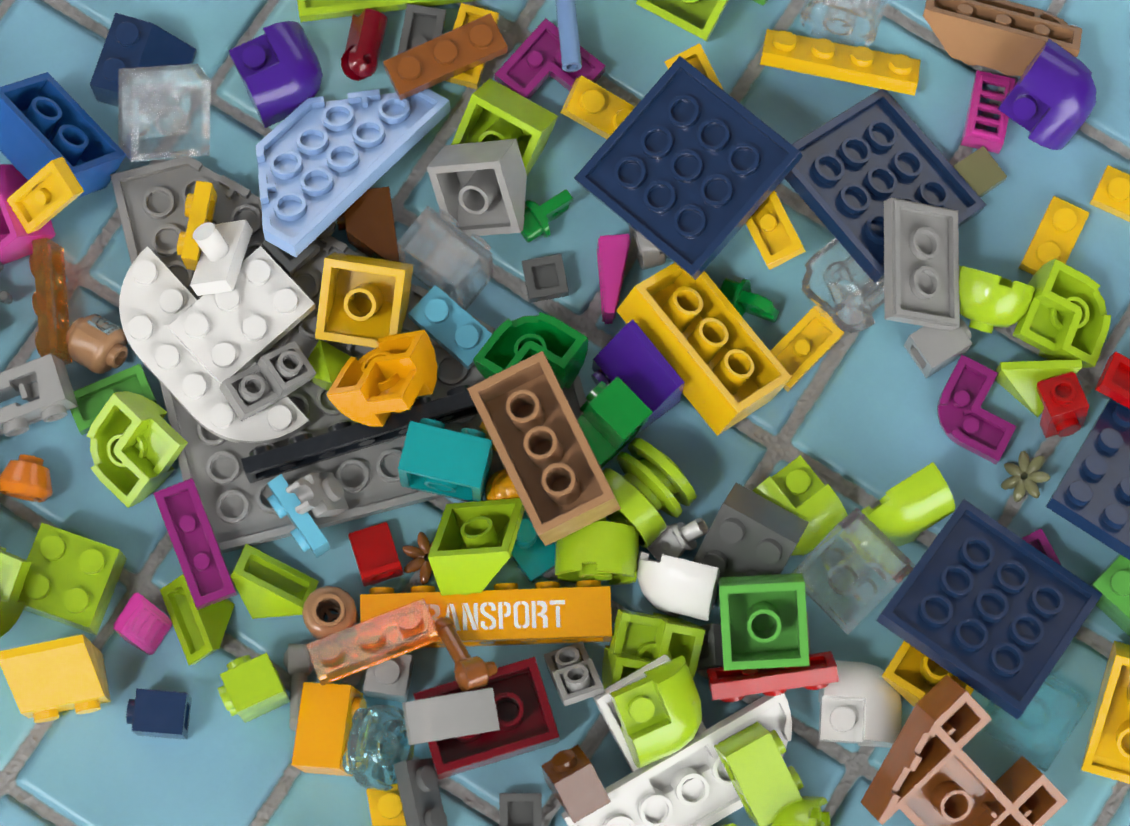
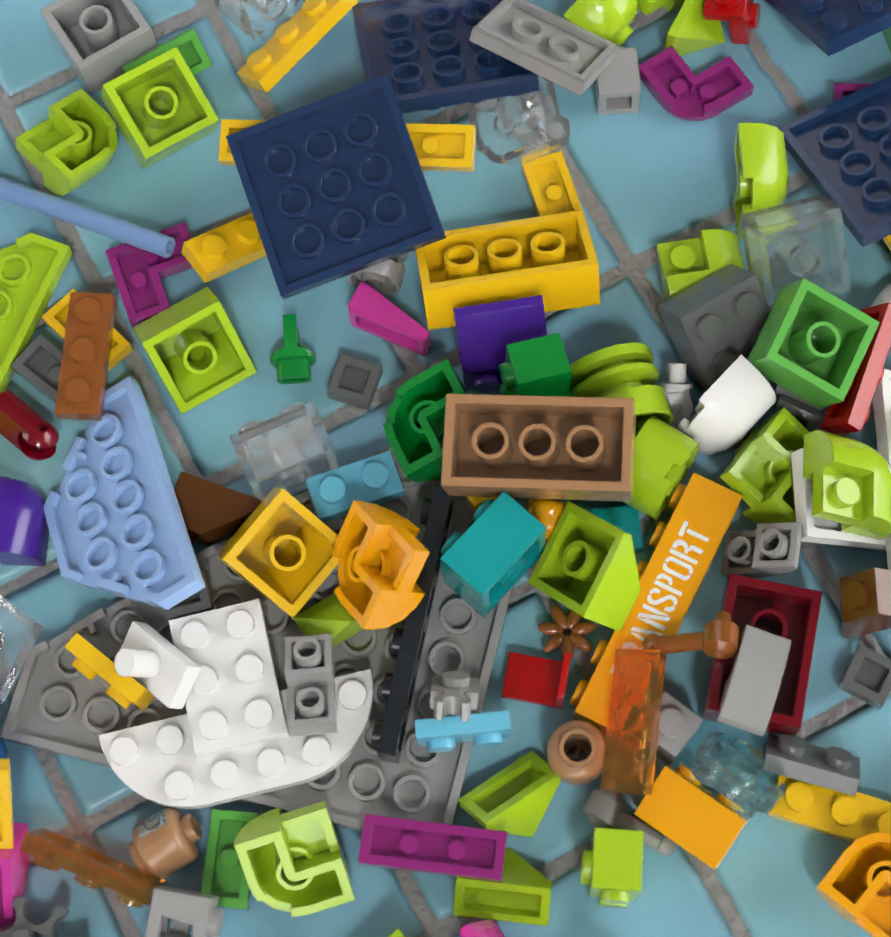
camera: 50 degrees left, 5 degrees down
(481, 186) = (232, 385): light grey slope -> none
(744, 301) = (488, 213): green piece -> none
(1025, 476) = (770, 74): olive plant -> none

